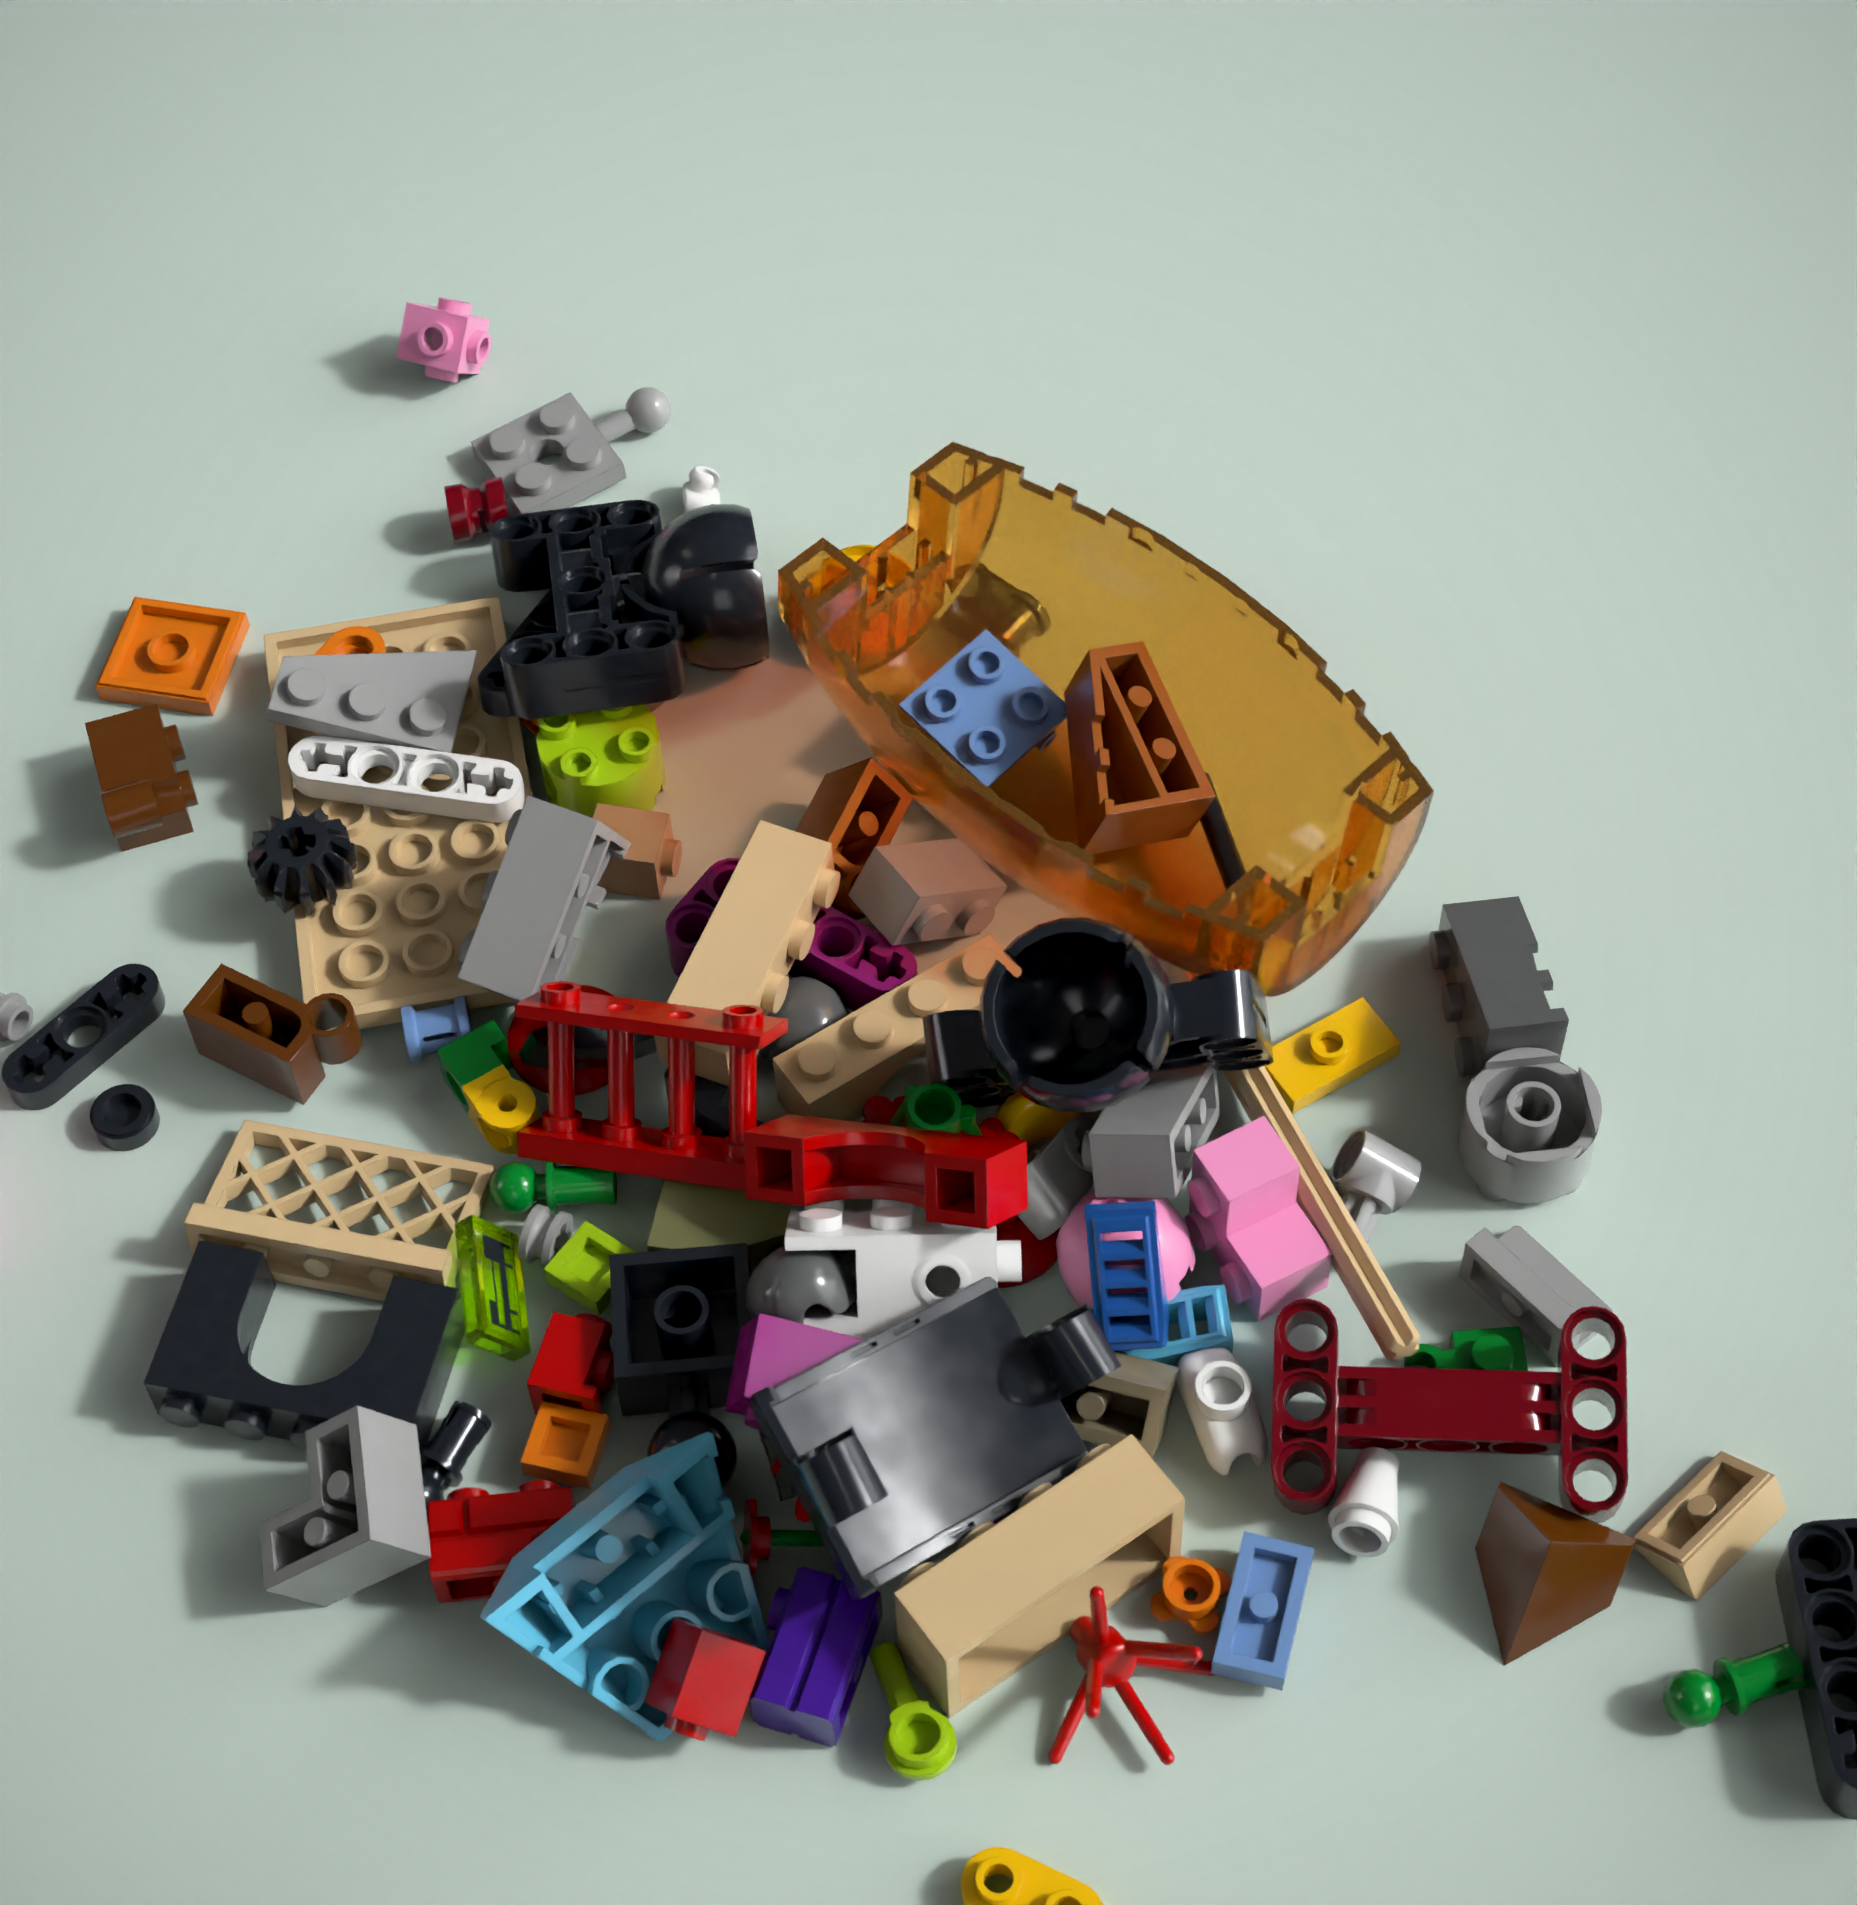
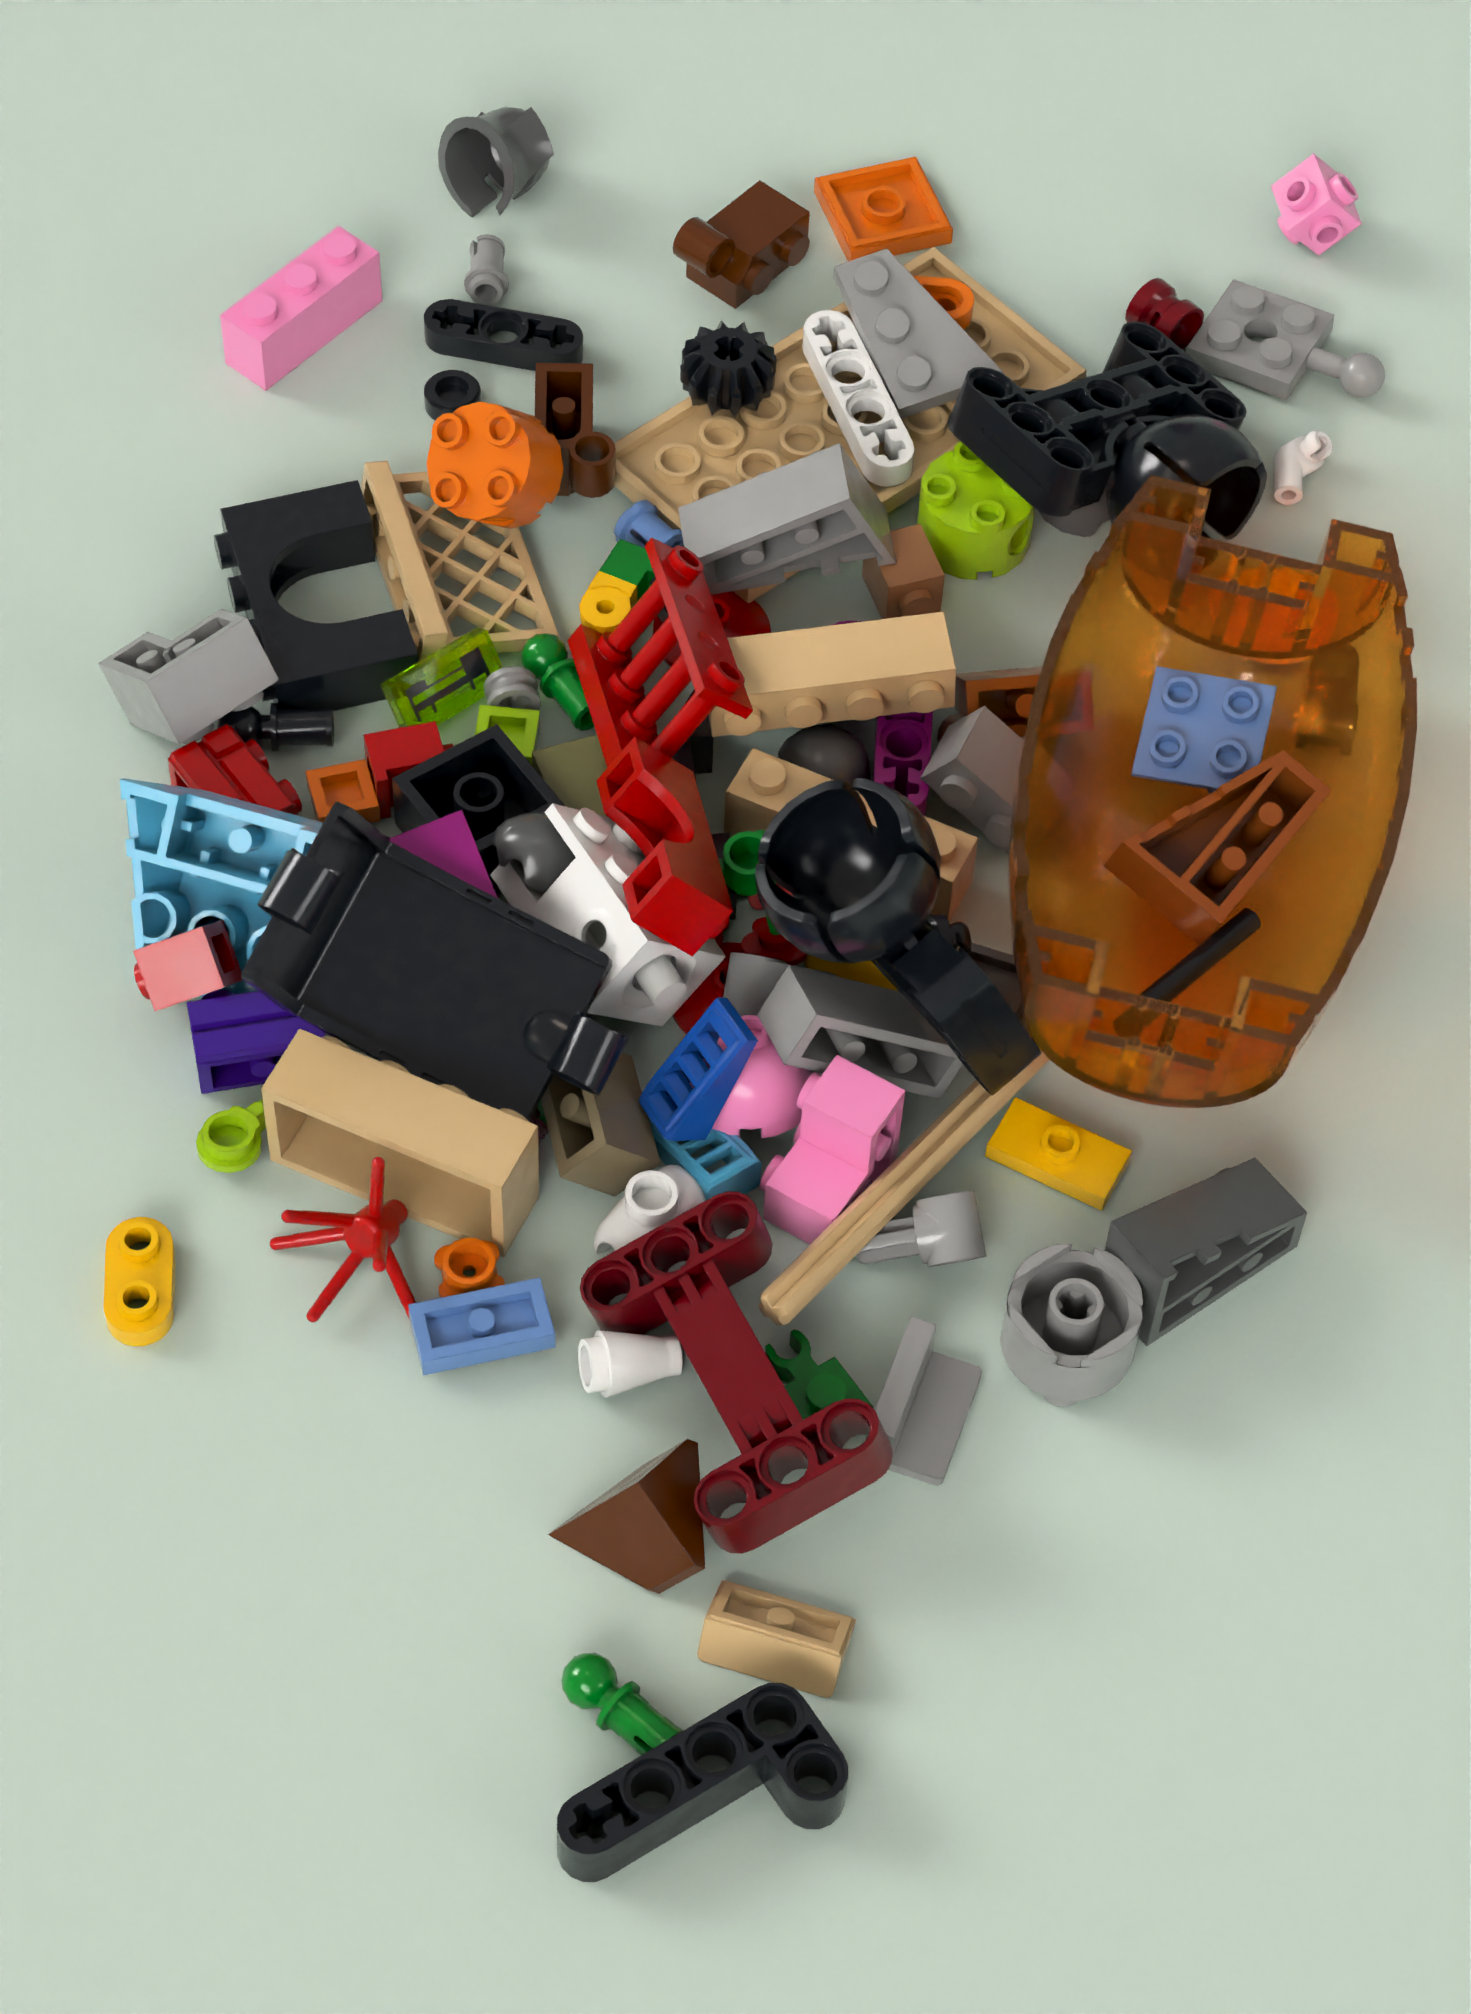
camera: 55 degrees right, 0 degrees up
(290, 1106) = (493, 465): none -> orange brick

